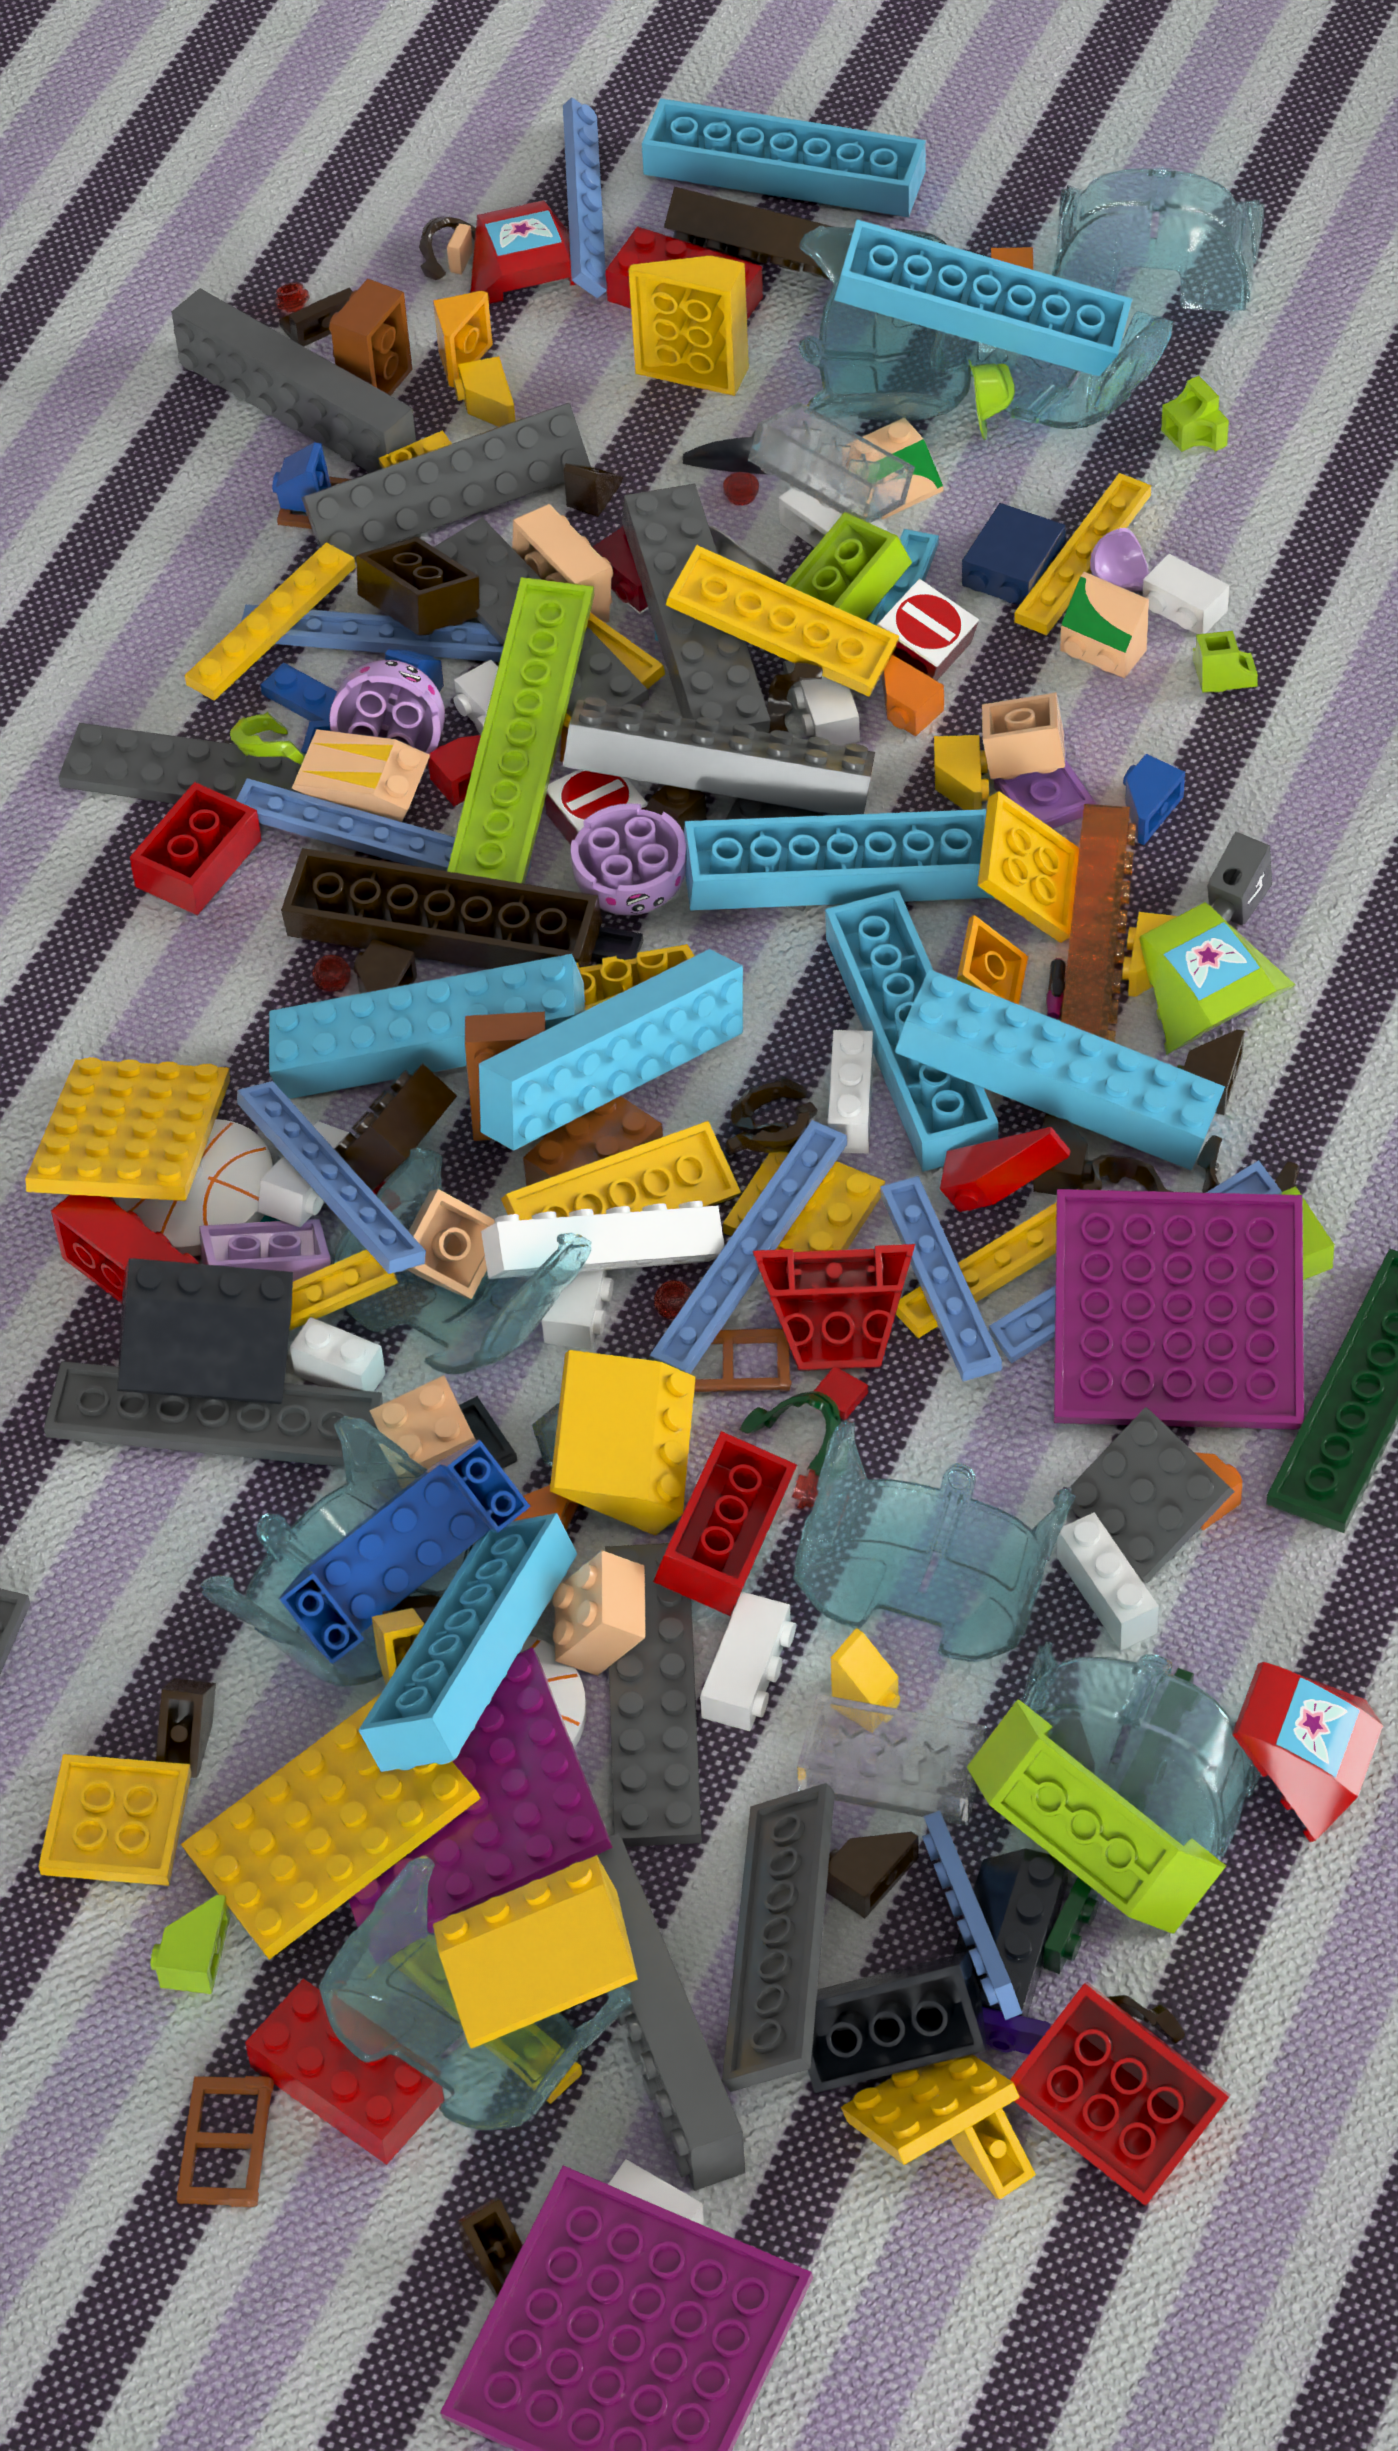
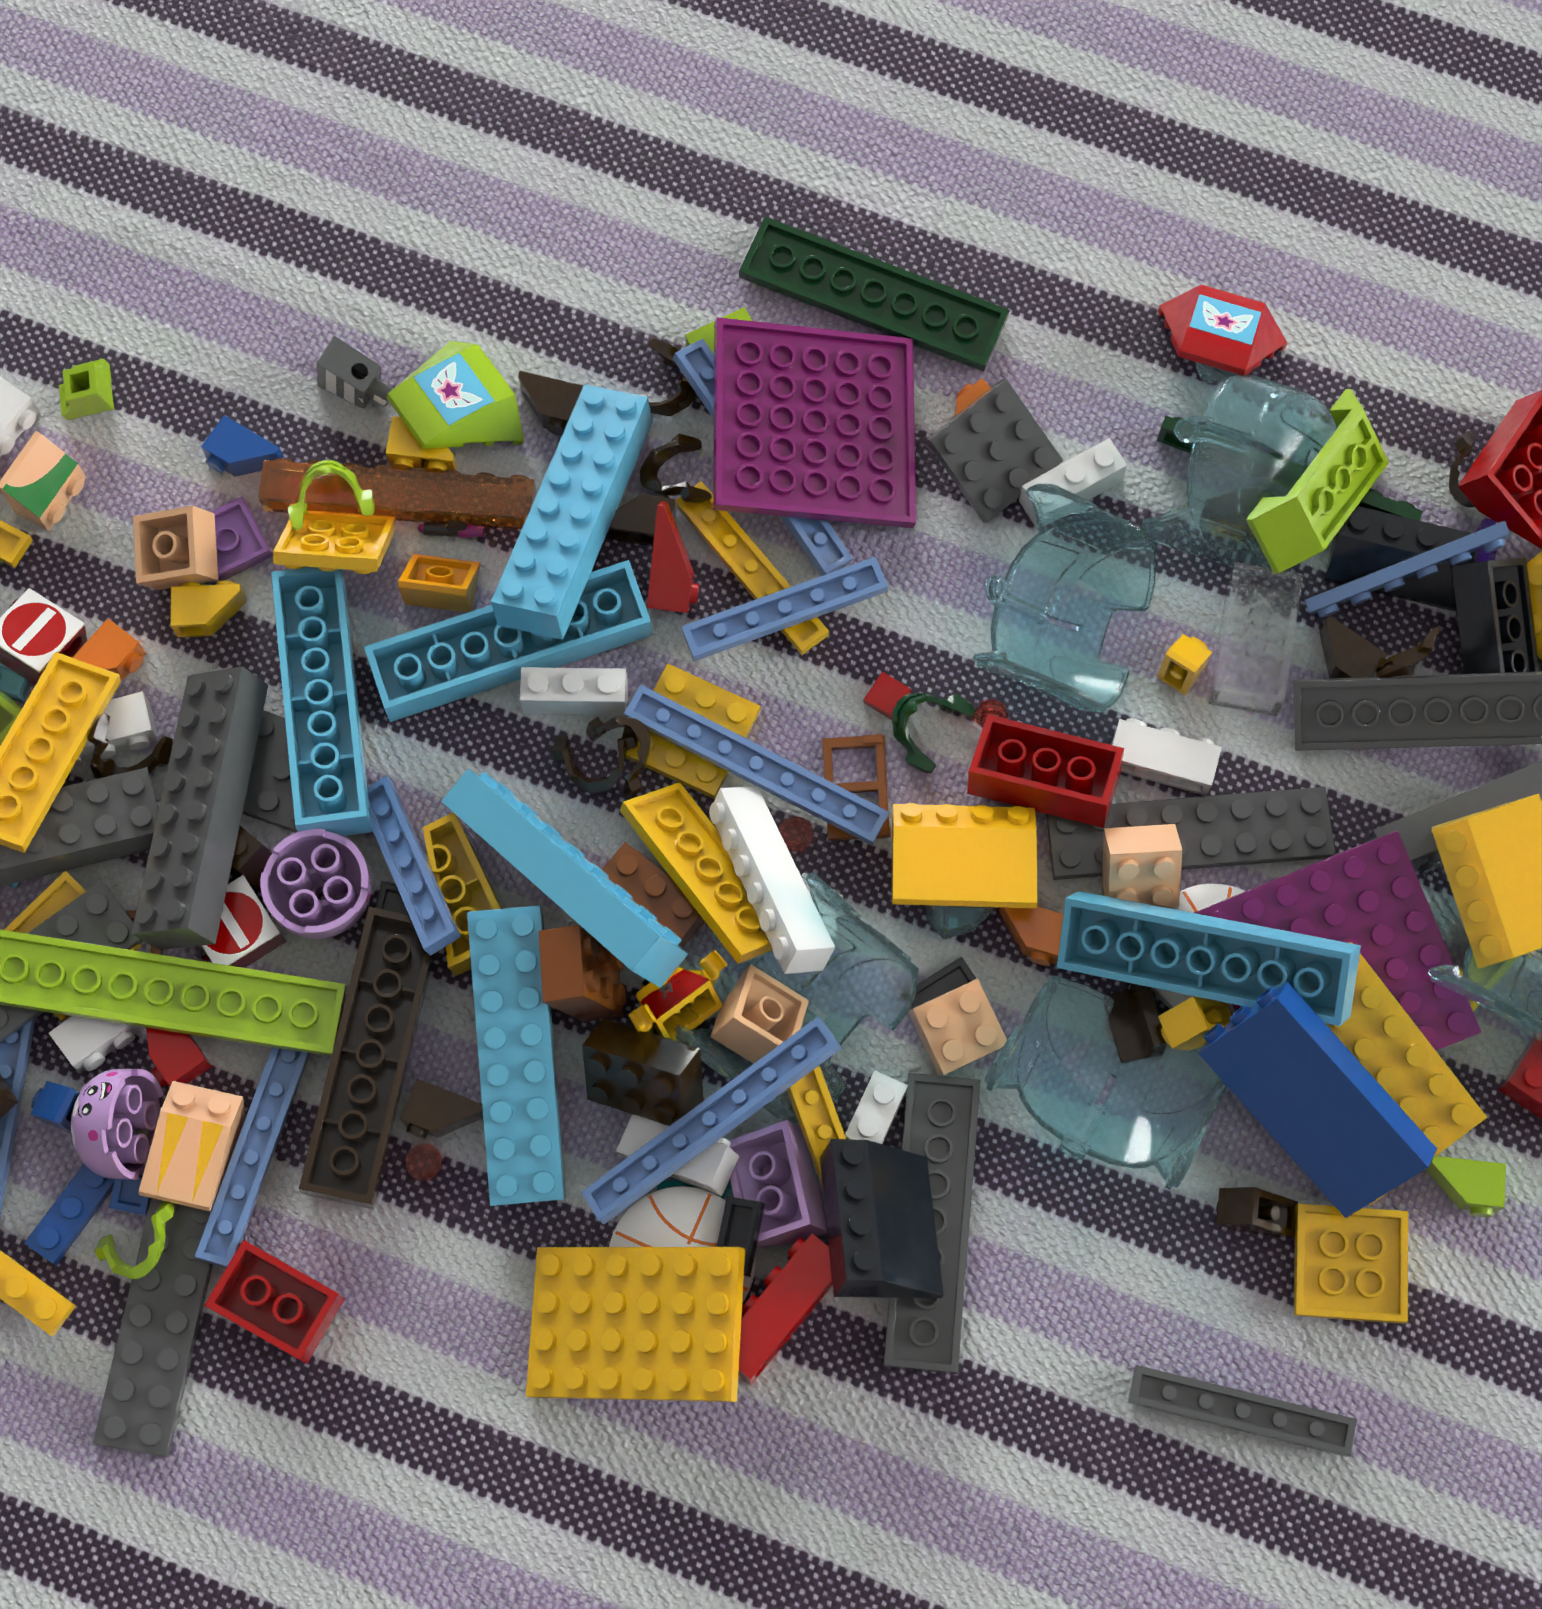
camera: 95 degrees left, 20 degrees up
(209, 1216) = (741, 1227): none -> black tile
(289, 1736) = (1316, 1099): none -> blue brick
(401, 1547) = (1101, 1036): blue slope -> none
(471, 1161) = (682, 1000): none -> yellow torso
(646, 933) = (410, 868): none -> medium blue plate
(836, 1302) = (802, 693): red wedge -> none
(839, 1902) = (1404, 662): none -> dark brown helmet
(1101, 875) = (324, 467): none -> lime helmet

